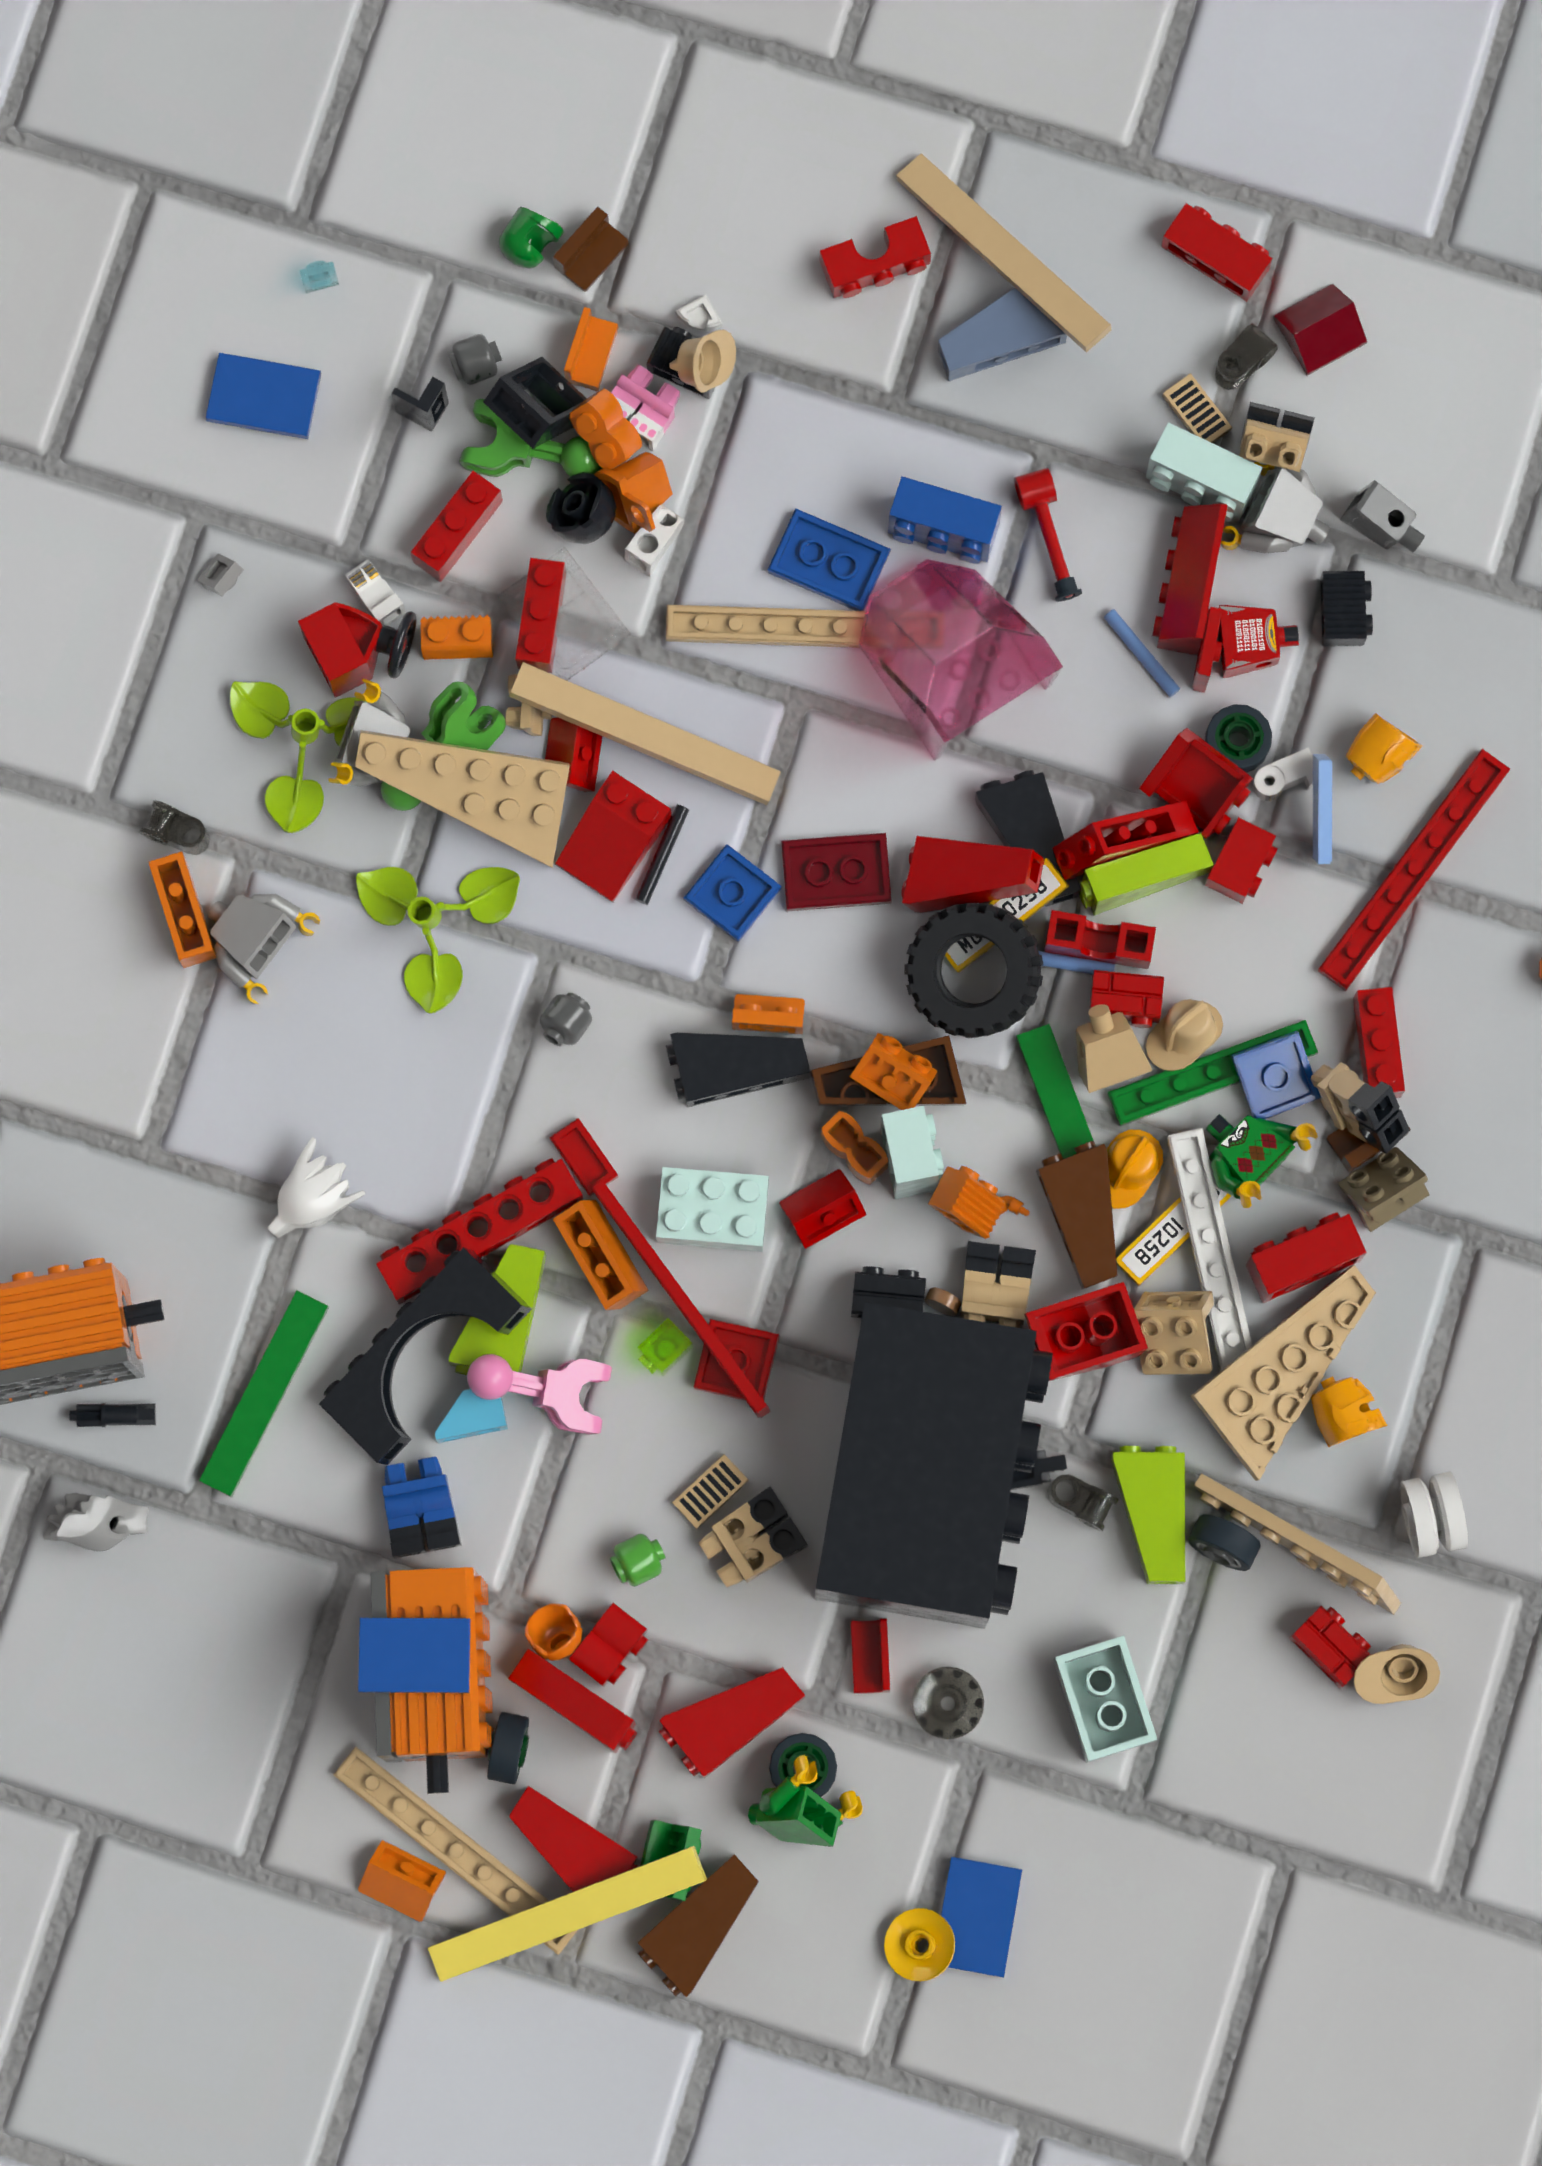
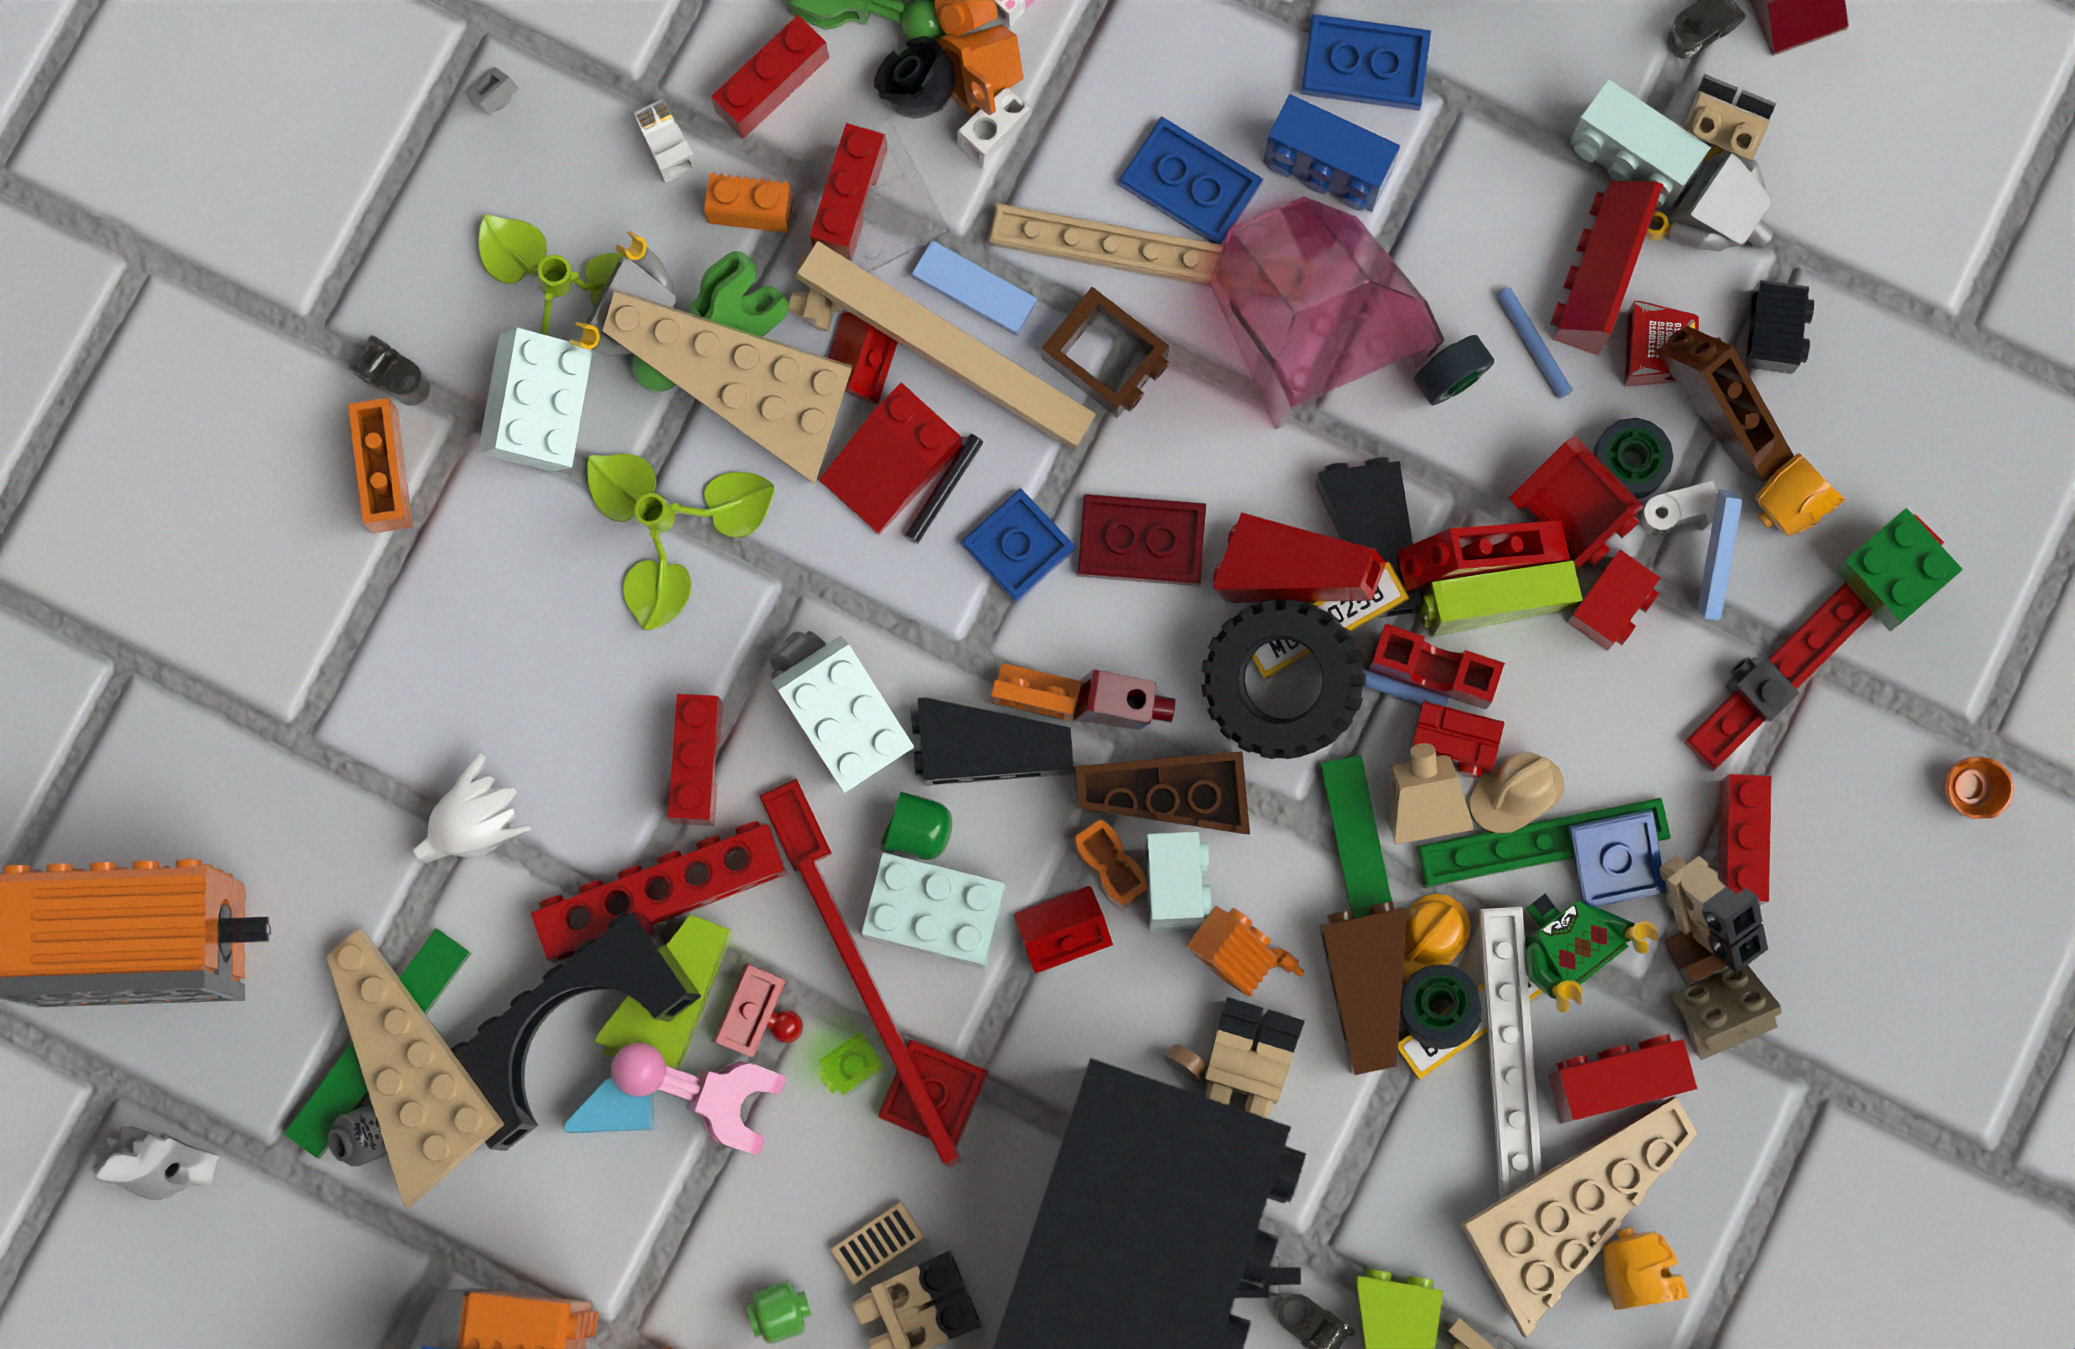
camera: 10 degrees right, 0 degrees up
(113, 1414) = (200, 1040): black piece -> none
(252, 933) = (455, 506): light grey torso -> none
(265, 1471) = (356, 1137): none -> dark grey head
(305, 834) = (535, 400): none -> light aqua brick
(308, 1424) = (416, 1084): none -> tan wing
(349, 641) = (625, 188): red piece -> none
(415, 1499) = (542, 1198): blue hips -> none
(491, 1115) = (694, 759): none -> red arch
(573, 1318) = (752, 1011): none -> plate
(600, 1254) = (794, 943): orange brick -> none
(609, 1057) = (842, 713): none -> light aqua brick
(660, 680) = (974, 288): none -> light blue tile
(688, 1142) = (918, 827): none -> green helmet
(750, 699) = (1073, 327): none -> reddish brown window
(827, 1011) = (1105, 697): none -> torso
(894, 1072) = (1171, 785): orange bracket -> none
(899, 1290) = (1124, 1043): black brick -> none
(962, 435) = (1366, 62): none -> blue tile
(1035, 492) = (1441, 139): red piece -> none
(1076, 687) = (1454, 369): none -> black wheel
(1088, 1331) = (1351, 1127): red slope -> none
(1141, 1203) = (1446, 1029): none -> wheel
(1175, 1332) = (1452, 1143): tan bracket -> none
(1196, 410) = (1640, 73): tan tile -> none
(1209, 650) = (1614, 352): red plate -> none
(1308, 678) = (1726, 400): none -> reddish brown slope
(1372, 512) = (1838, 229): dark grey torso -> none
(1374, 914) = (1762, 686): none -> black bracket
(1473, 798) = (1898, 569): none -> green brick

